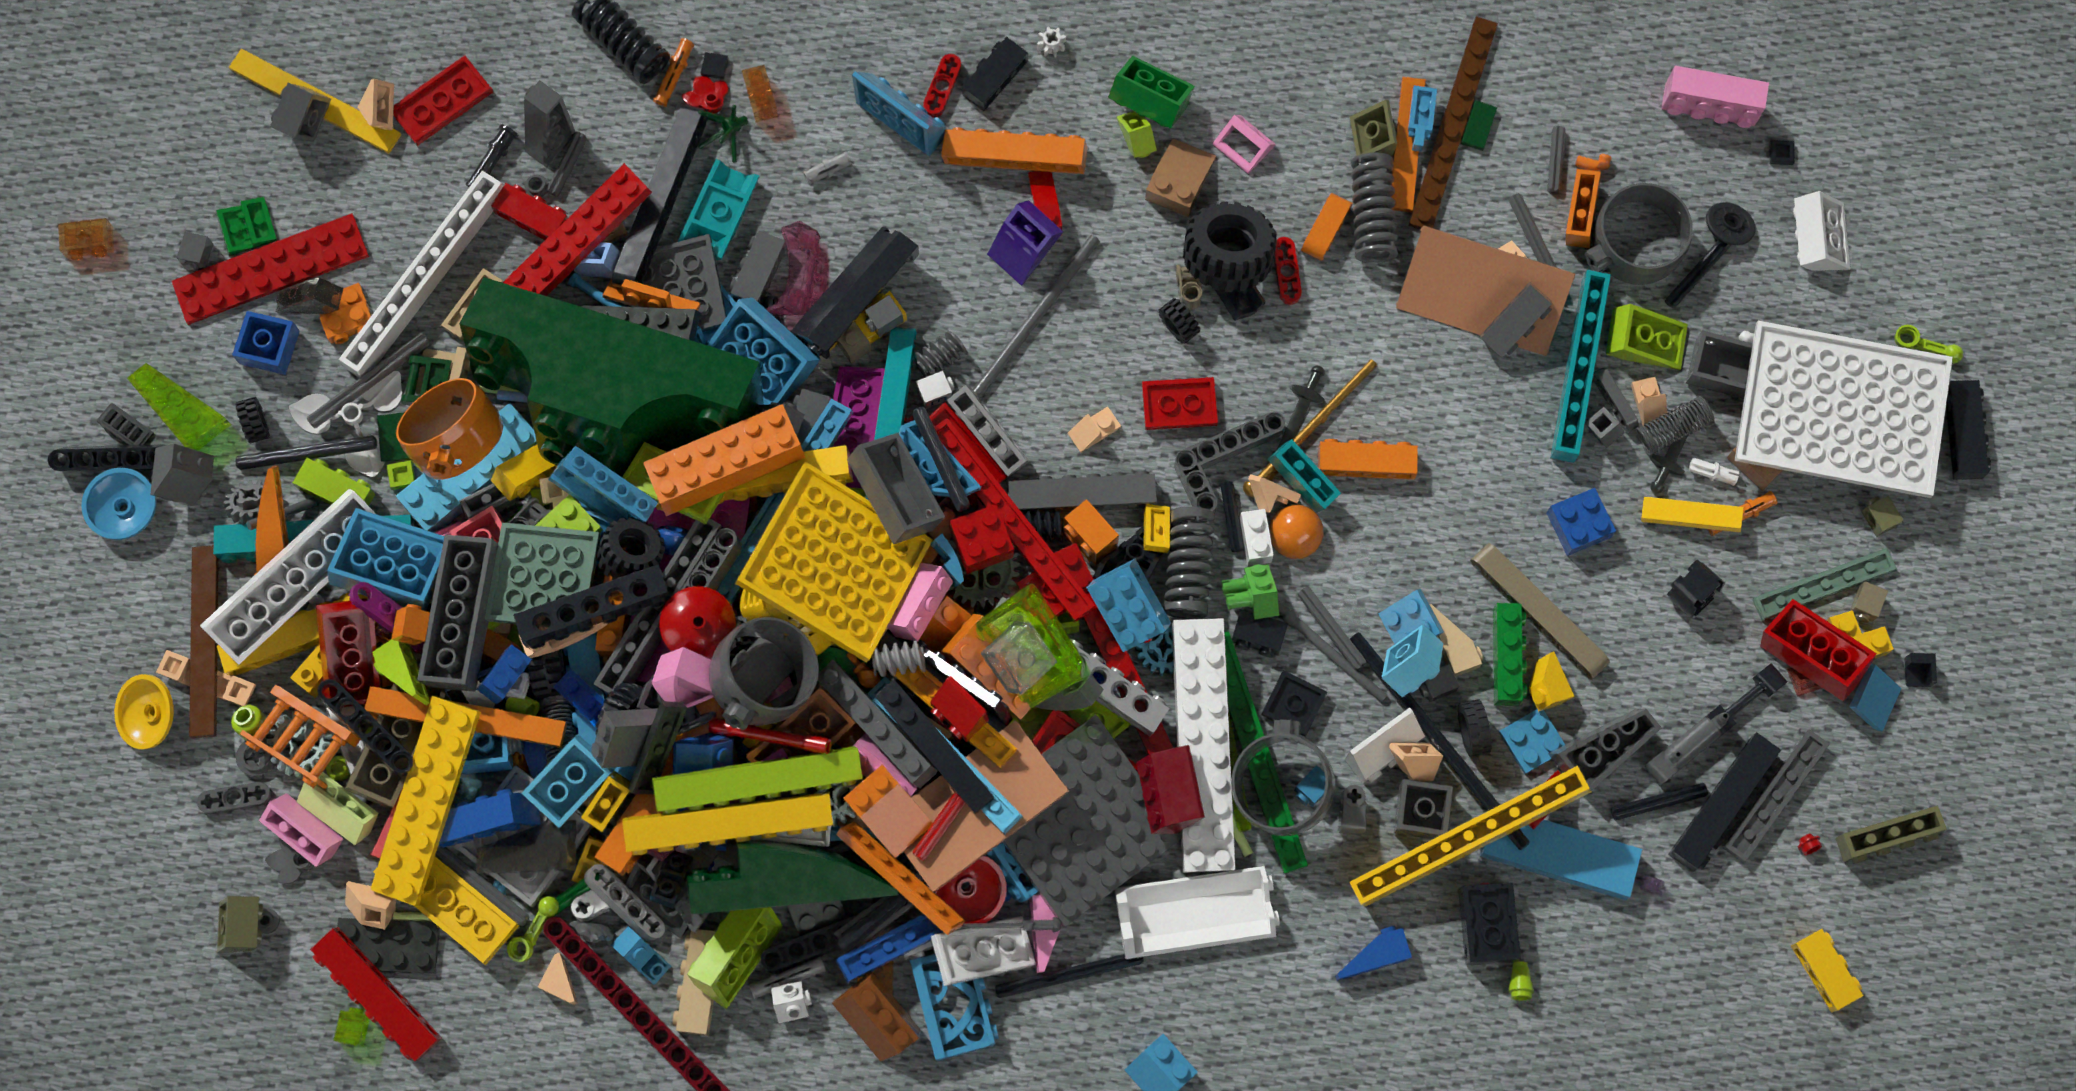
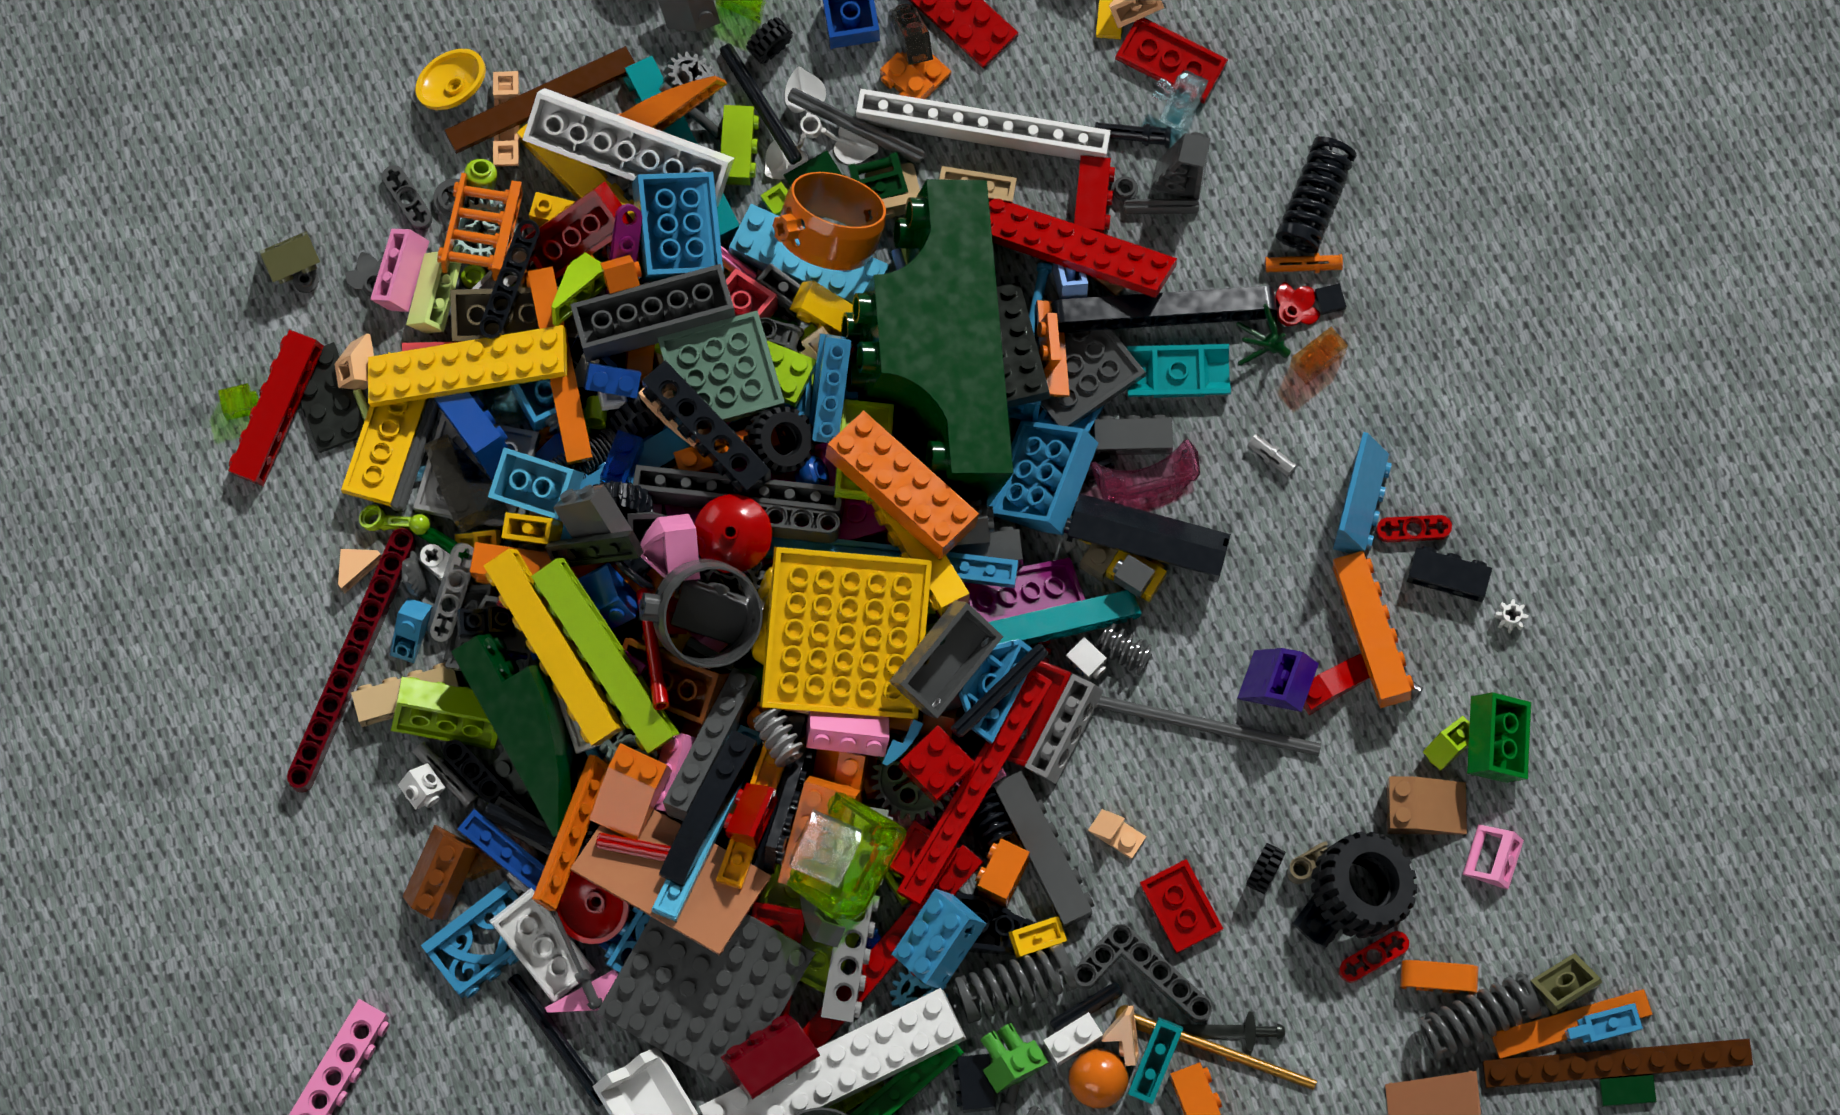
camera: 70 degrees right, 0 degrees up
(484, 103) = (1181, 99): none -> clear light blue brick

